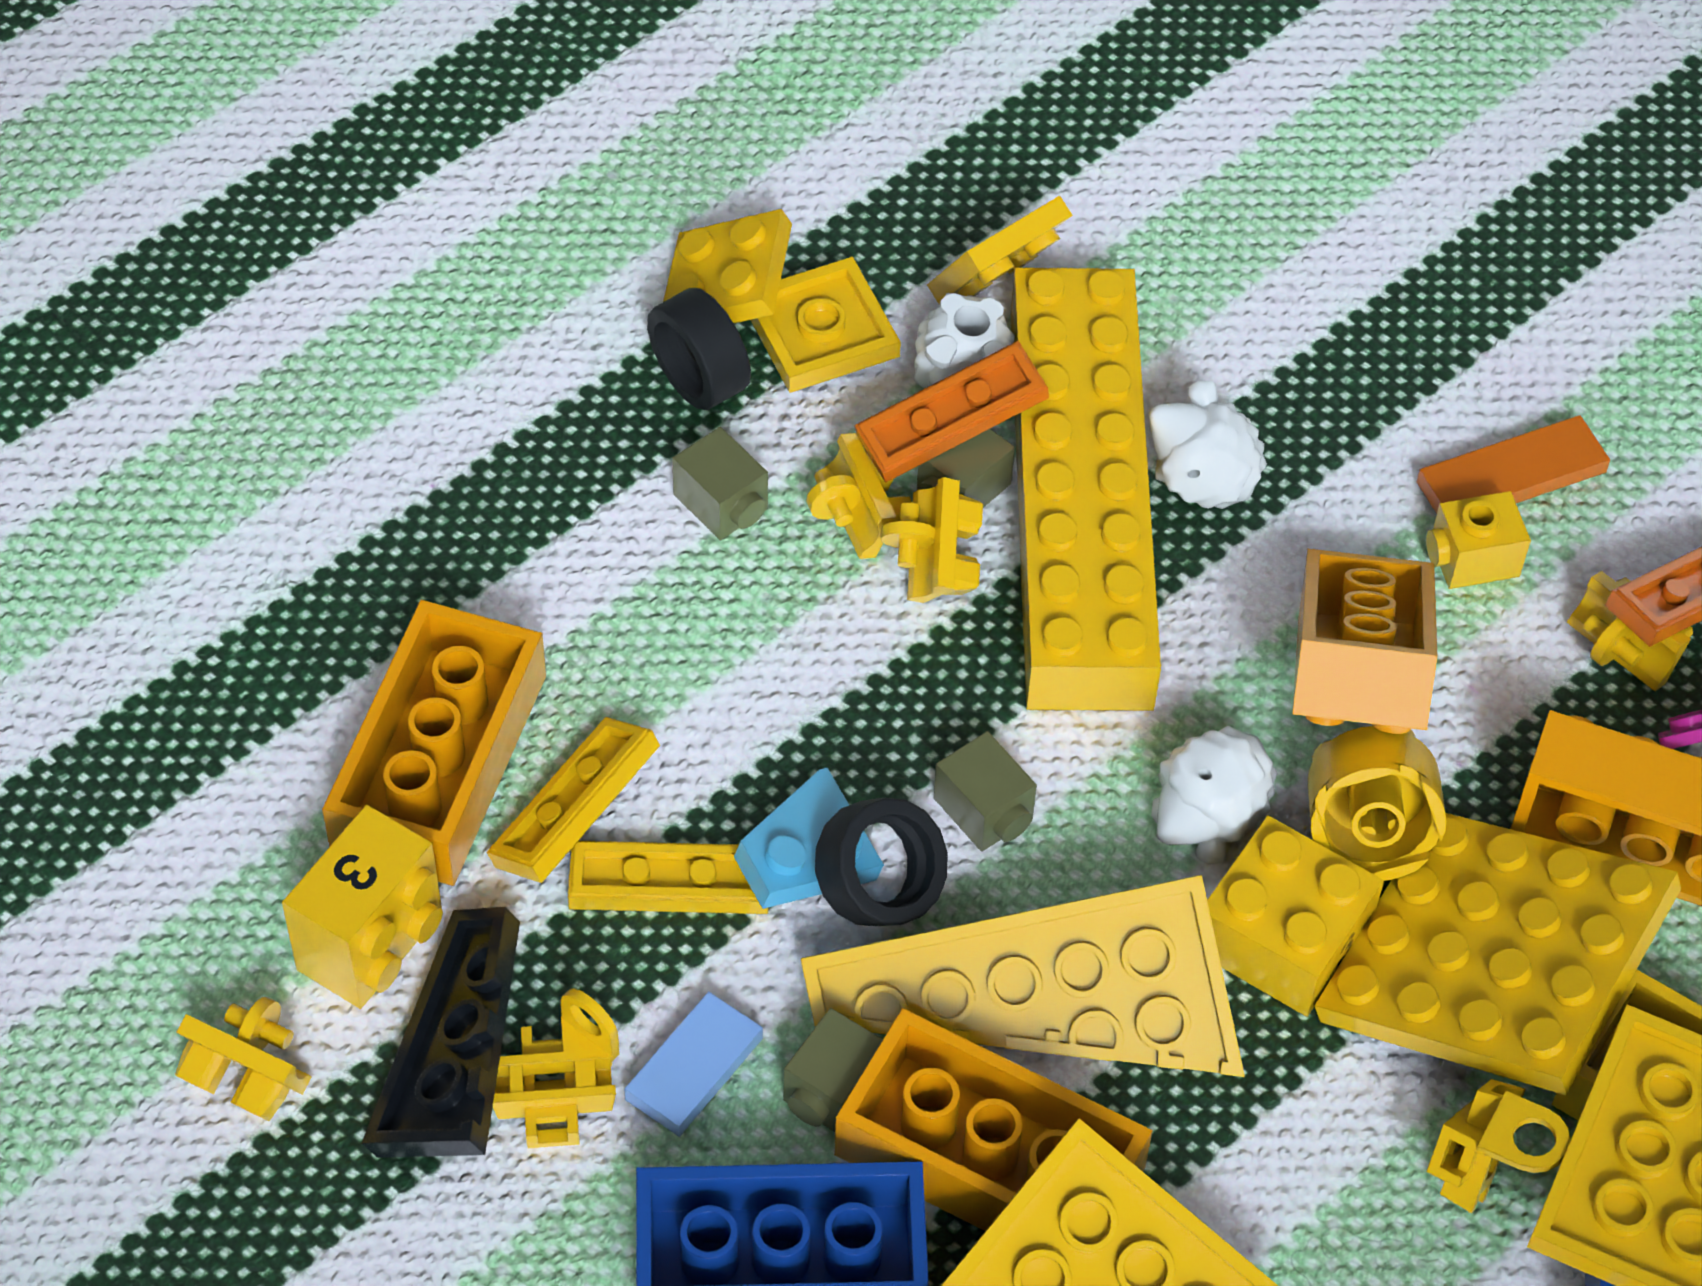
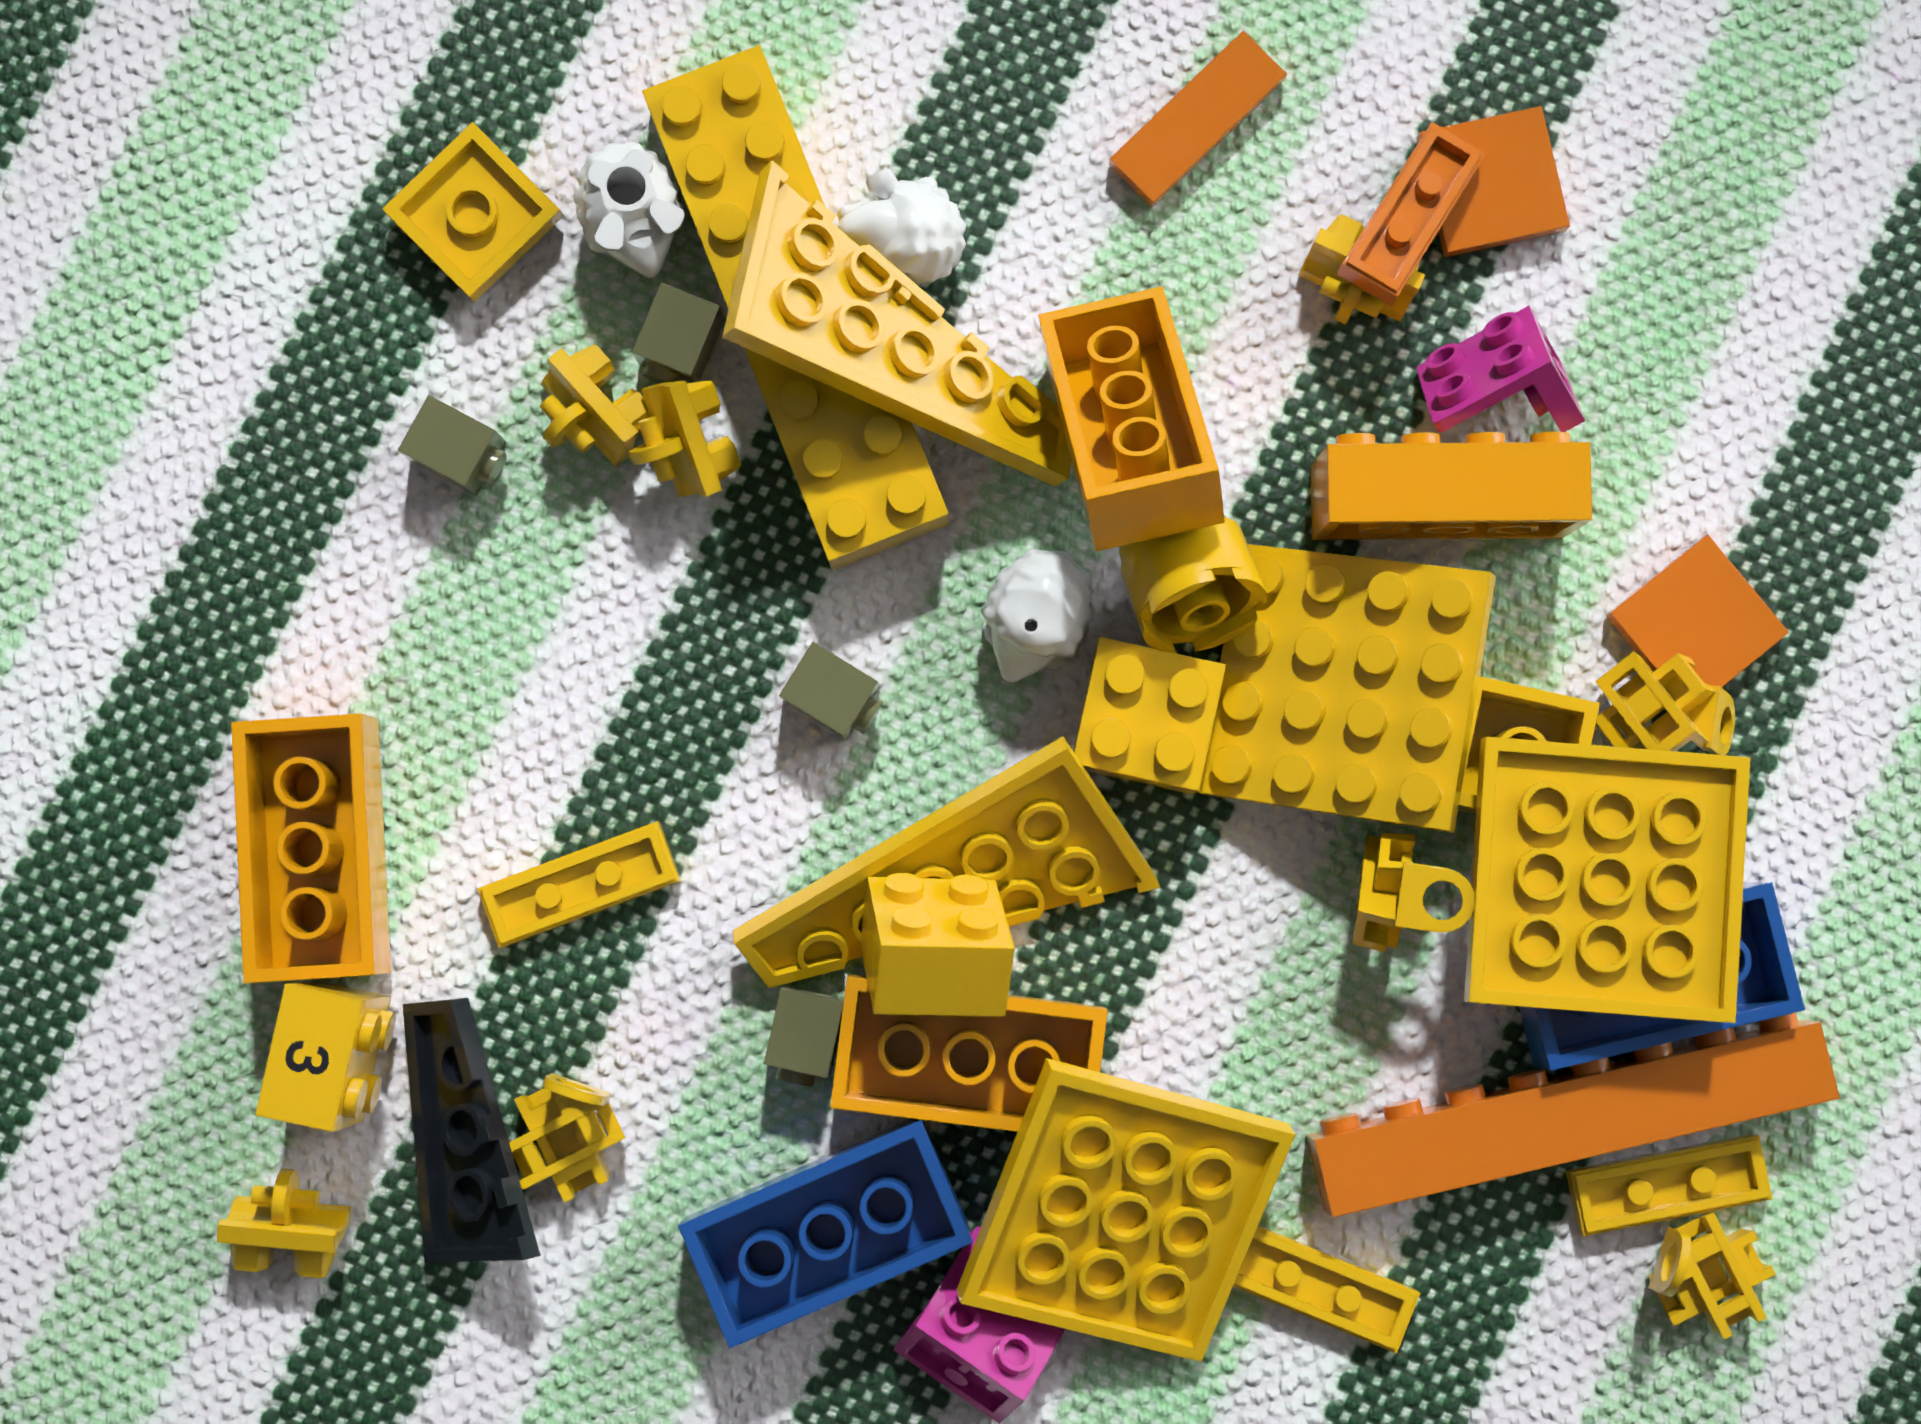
camera: 20 degrees left, 30 degrees up
(573, 799) = (460, 845): yellow tile -> none
(693, 1064) = (677, 1064): light blue tile -> none
(699, 348) = (369, 307): black tyre -> none
(734, 263) = (356, 194): yellow plate -> none
(782, 848) = (691, 811): medium azure wing -> none
(925, 862) = (806, 829): black tyre -> none
(951, 411) = (646, 299): orange tile -> none
(1002, 252) = (610, 80): yellow plate -> none
(1003, 1006) = (936, 946): none -> yellow brick
(1158, 503) = (873, 333): none -> yellow wing
(1478, 540) = (1190, 224): yellow brick -> none

